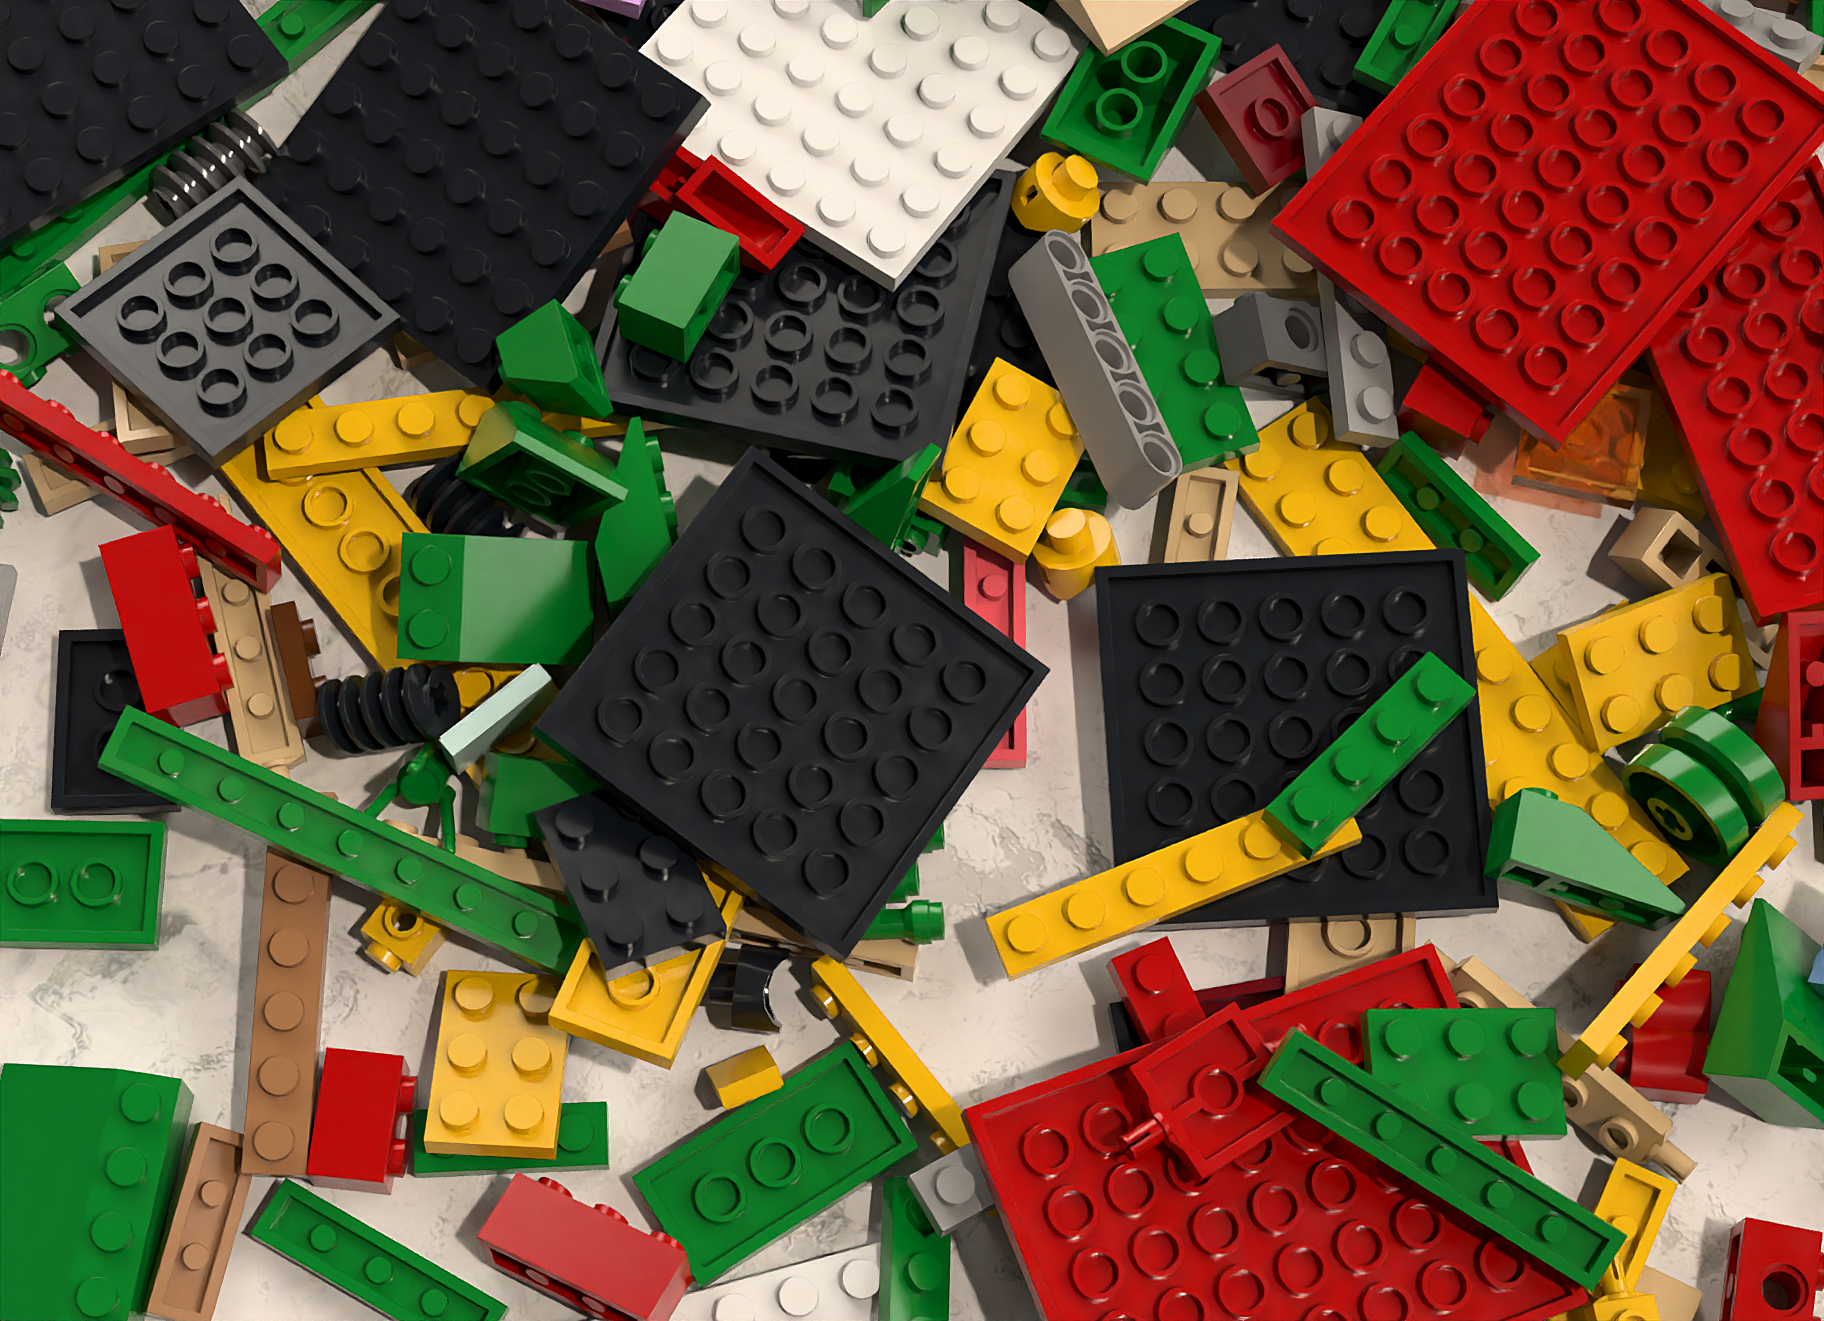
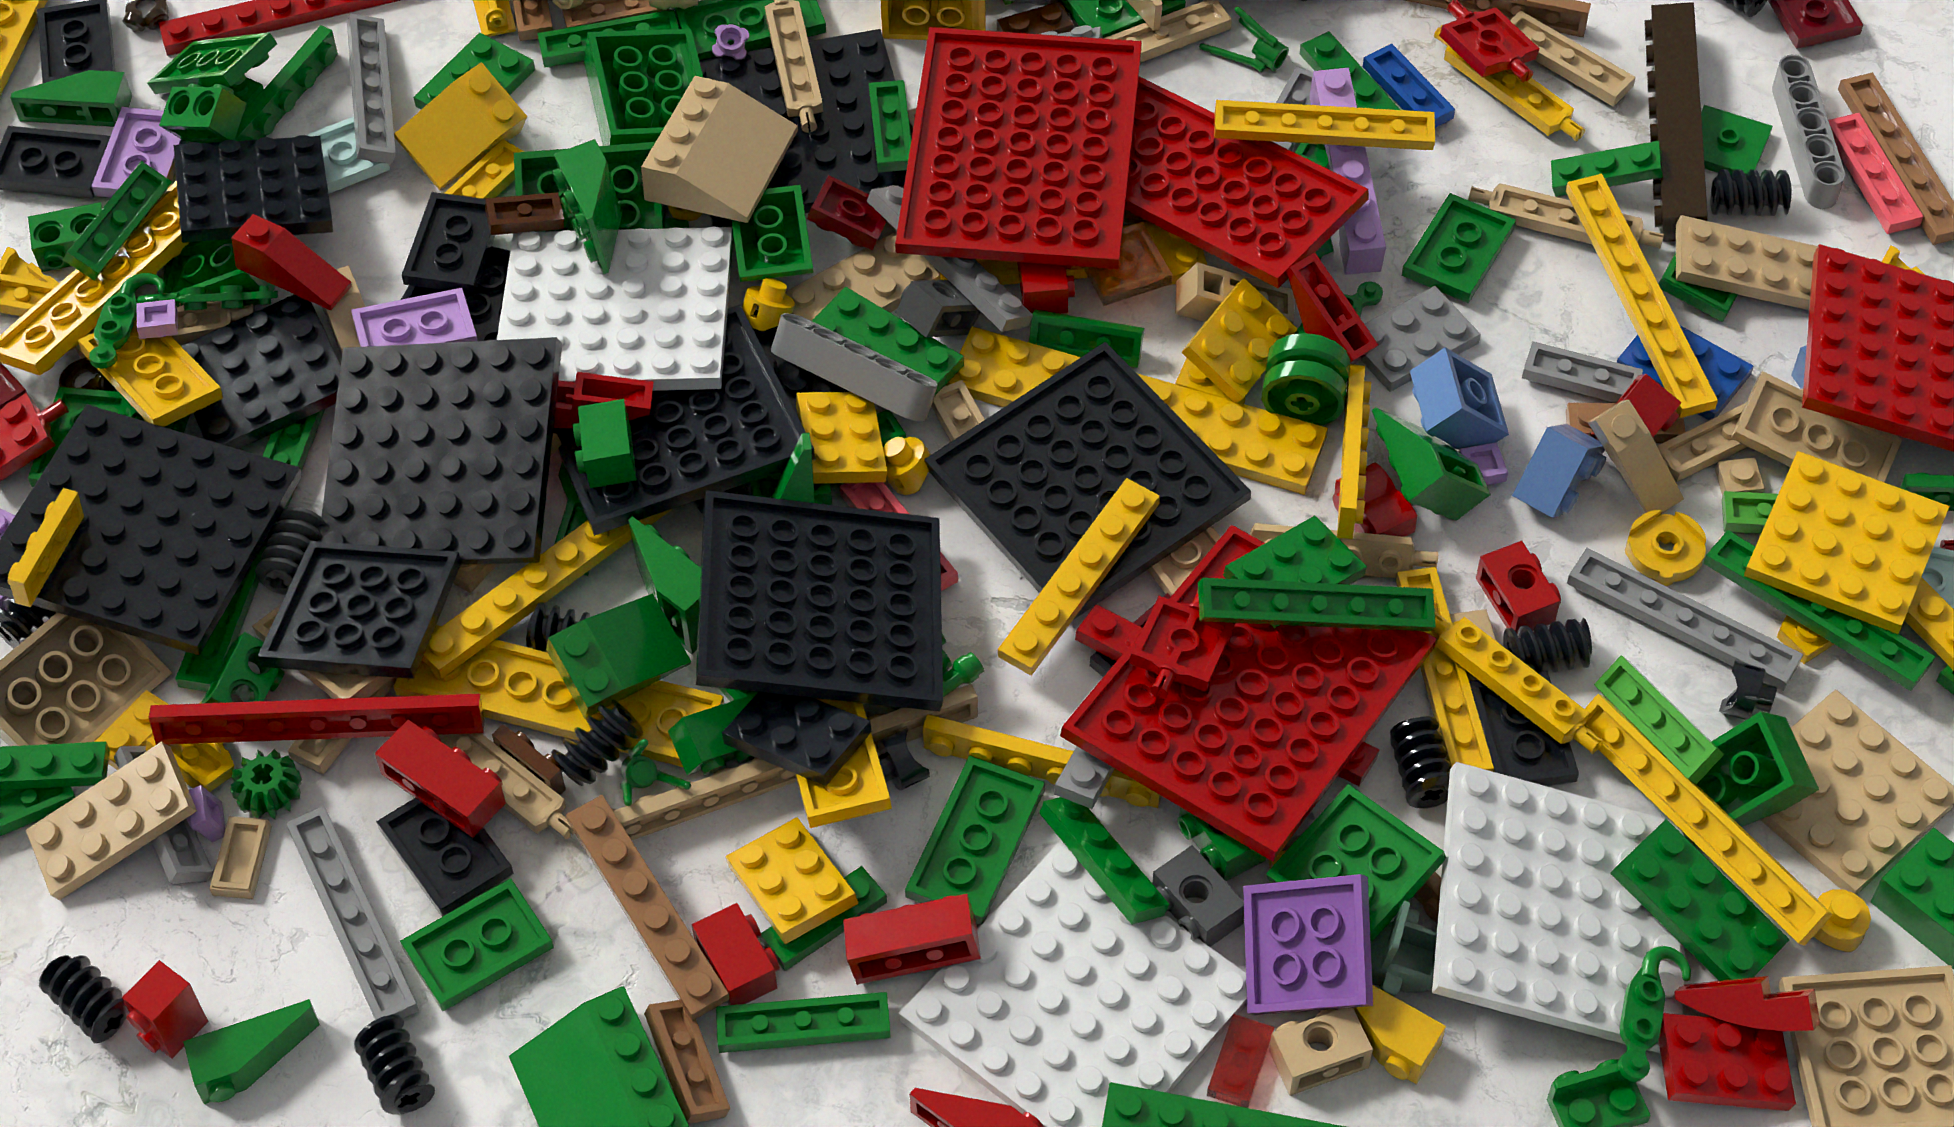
camera: 30 degrees left, 15 degrees down
(342, 841) = (629, 808): green plate -> none
(402, 948) = (687, 845): yellow brick -> none
(497, 718) = (662, 711): light aqua tile -> none
(540, 468) = (597, 570): green slope -> none
(554, 364) = (568, 517): green slope -> none
(744, 1077) = (927, 807): yellow tile -> none
(1368, 755) = (1134, 455): green plate -> none
(1573, 859) = (1271, 446): slope -> none

